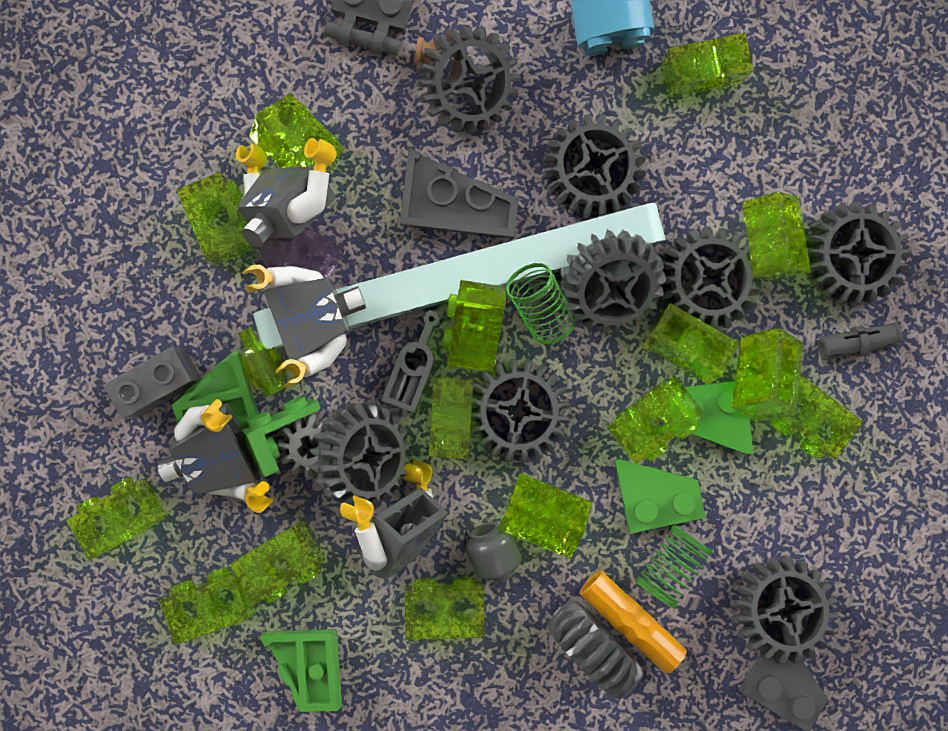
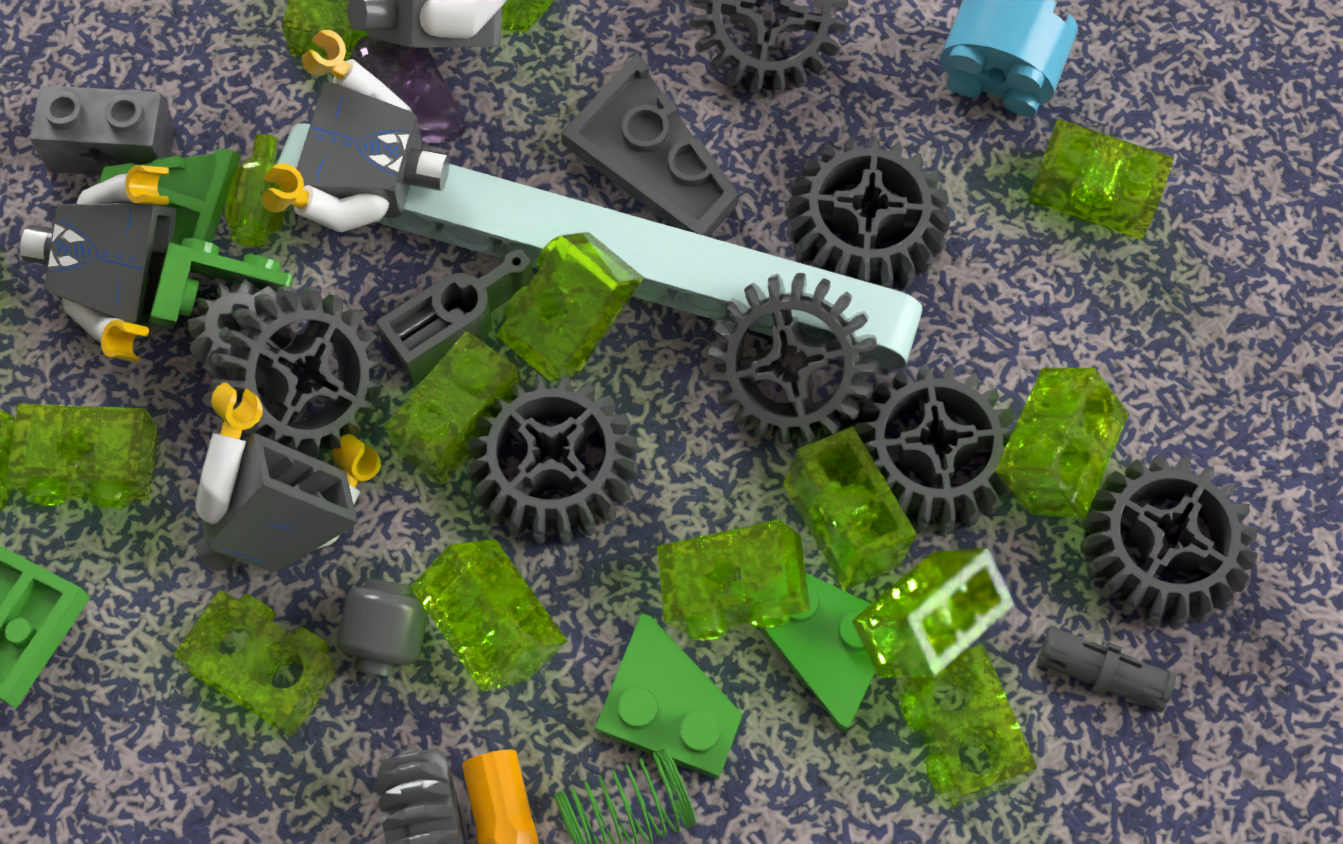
camera: 30 degrees right, 20 degrees down
(533, 297) = (675, 293): bright green piece -> none

